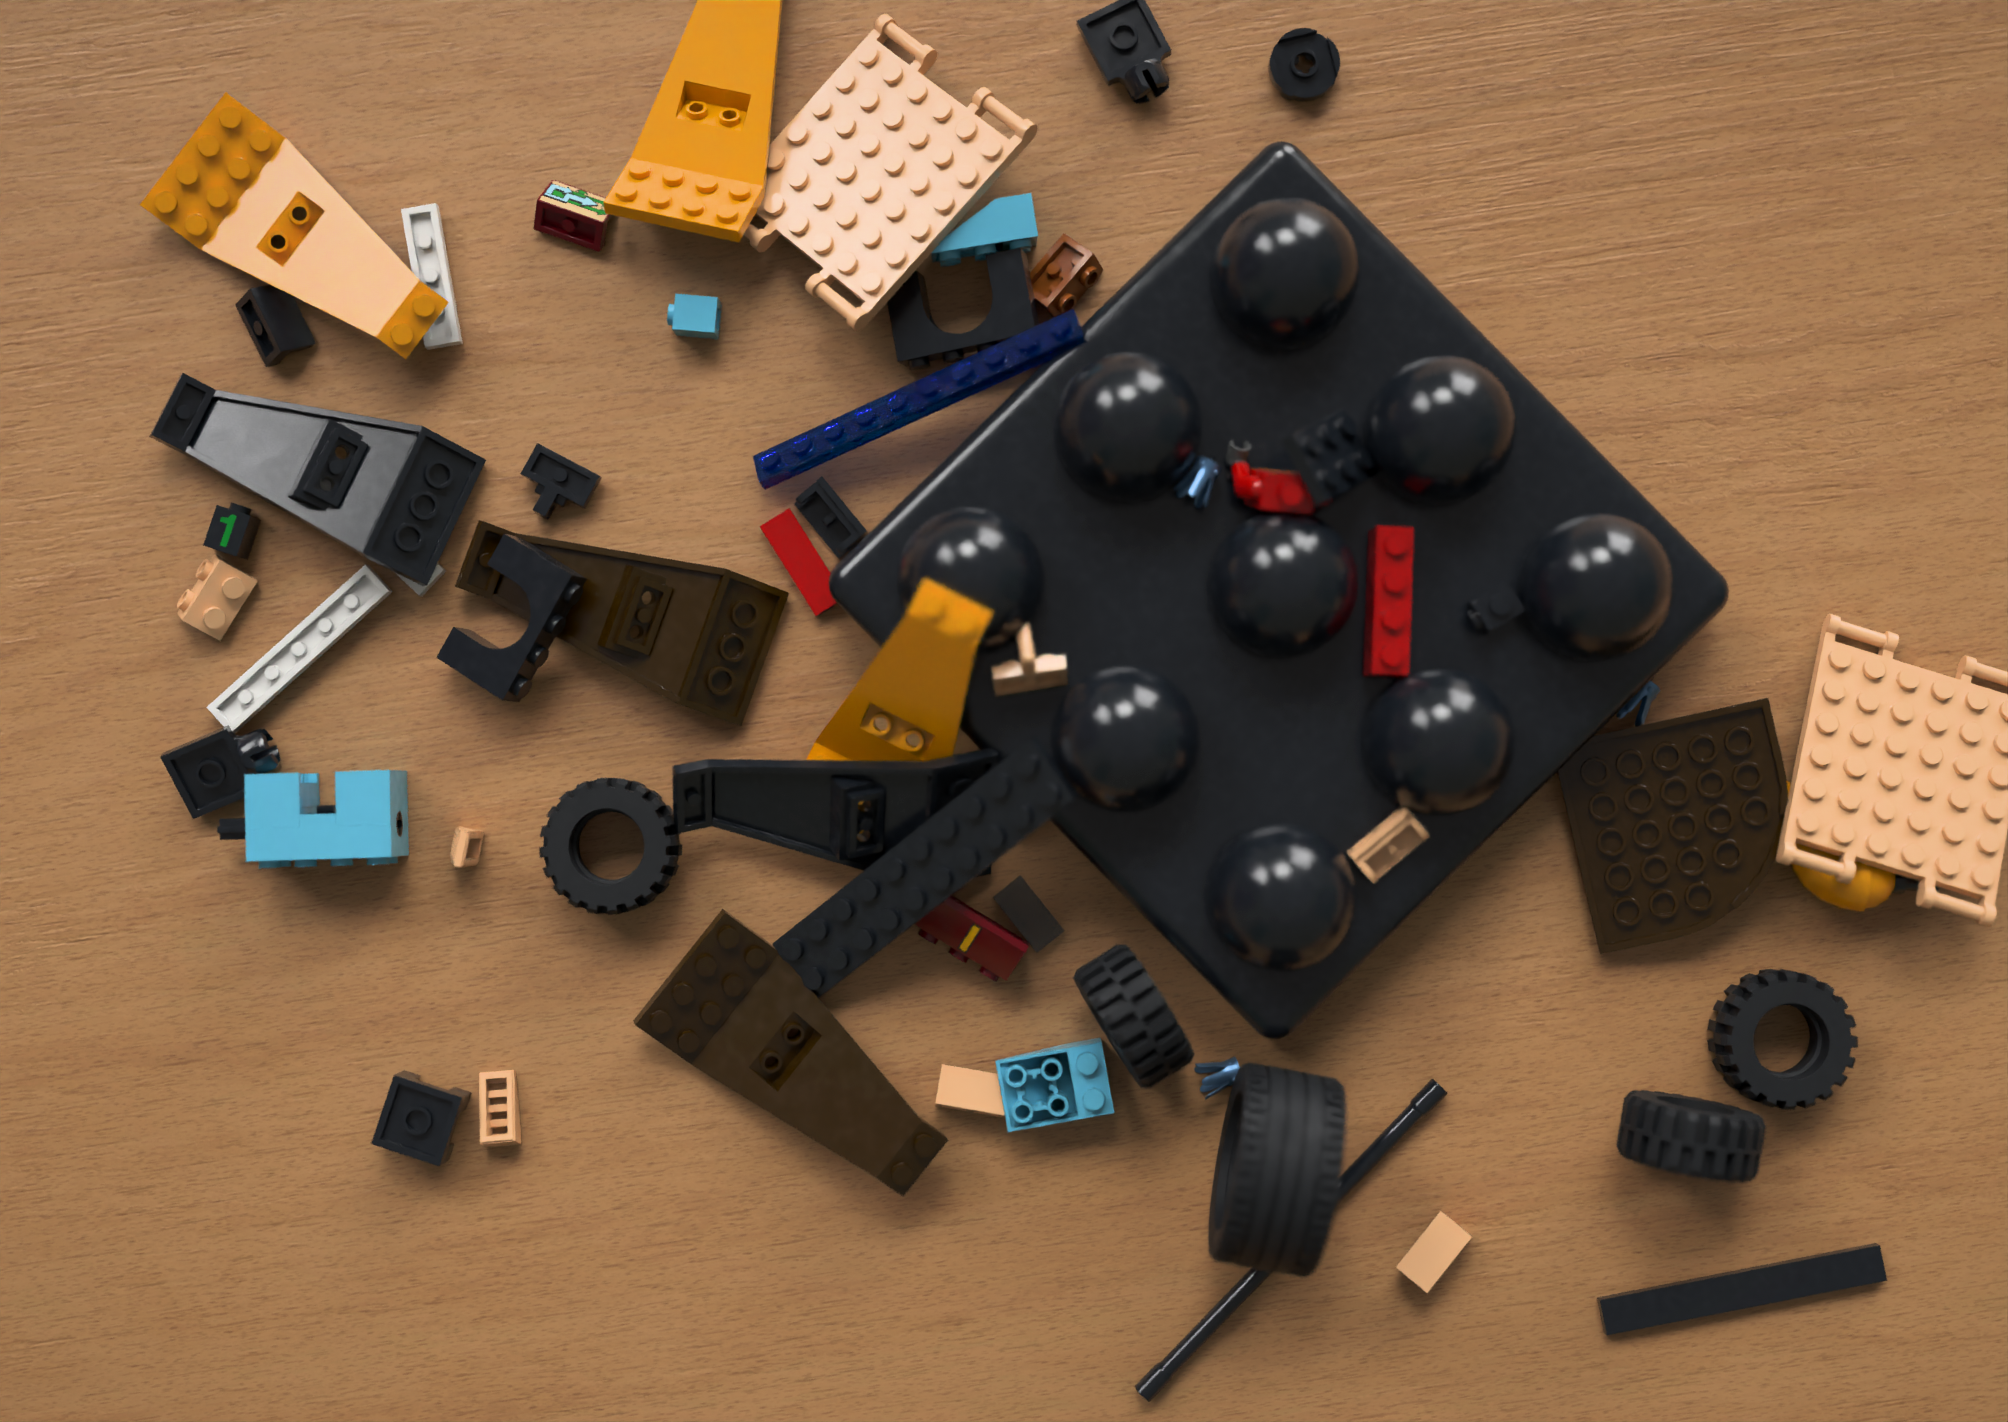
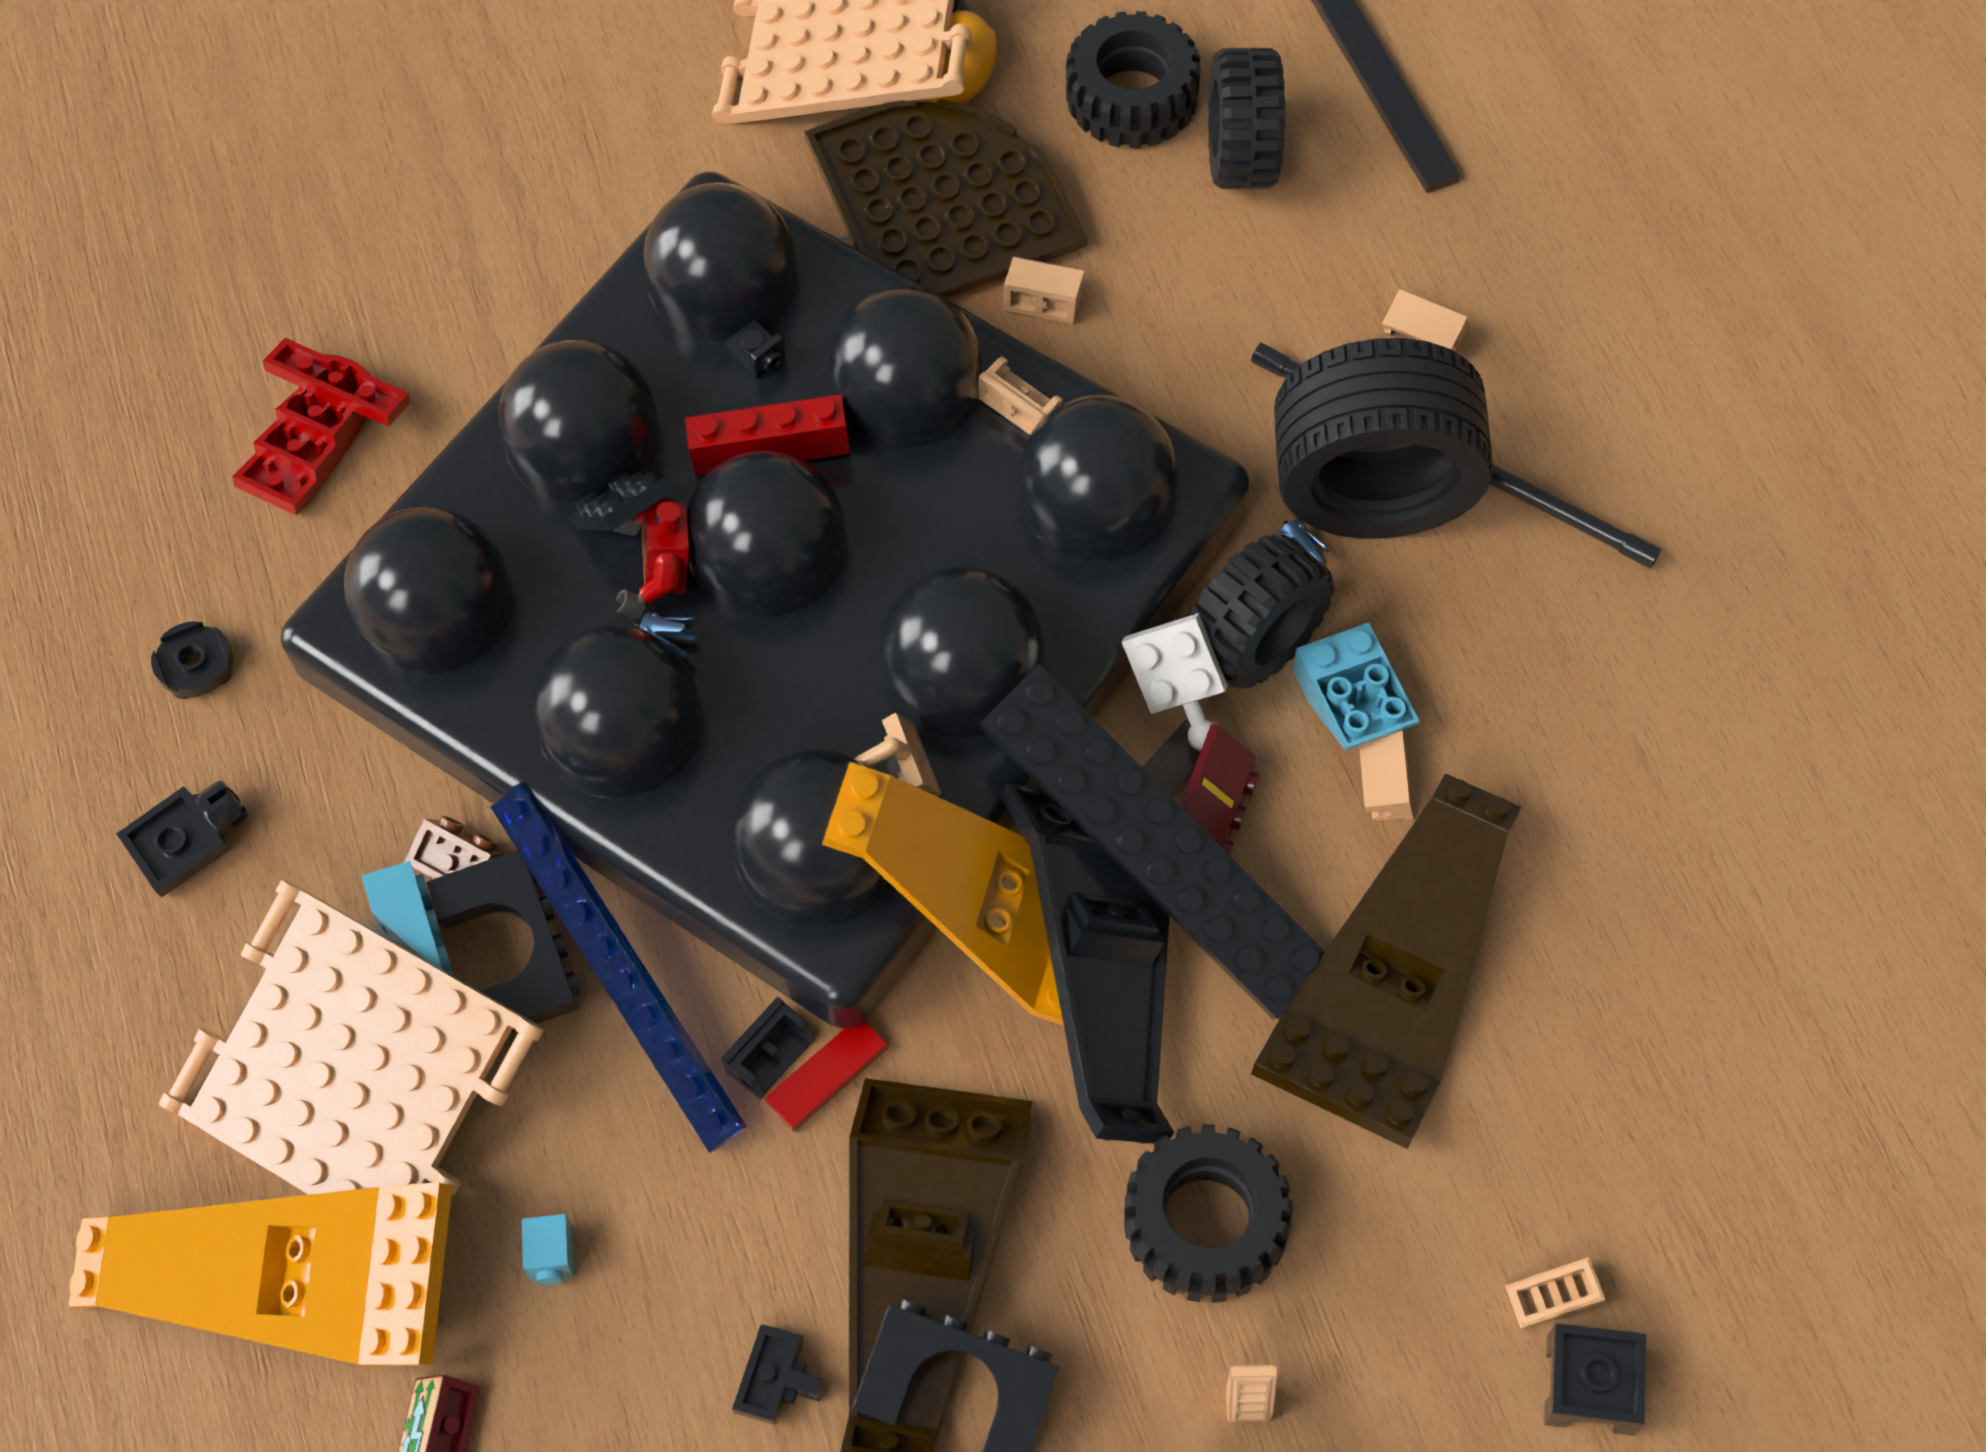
camera: 100 degrees left, 25 degrees down
(1089, 929) = (1176, 669): none -> white plate
(1532, 191) = (313, 423): none -> red slope
(1549, 898) = (1042, 290): none -> light nougat hinge

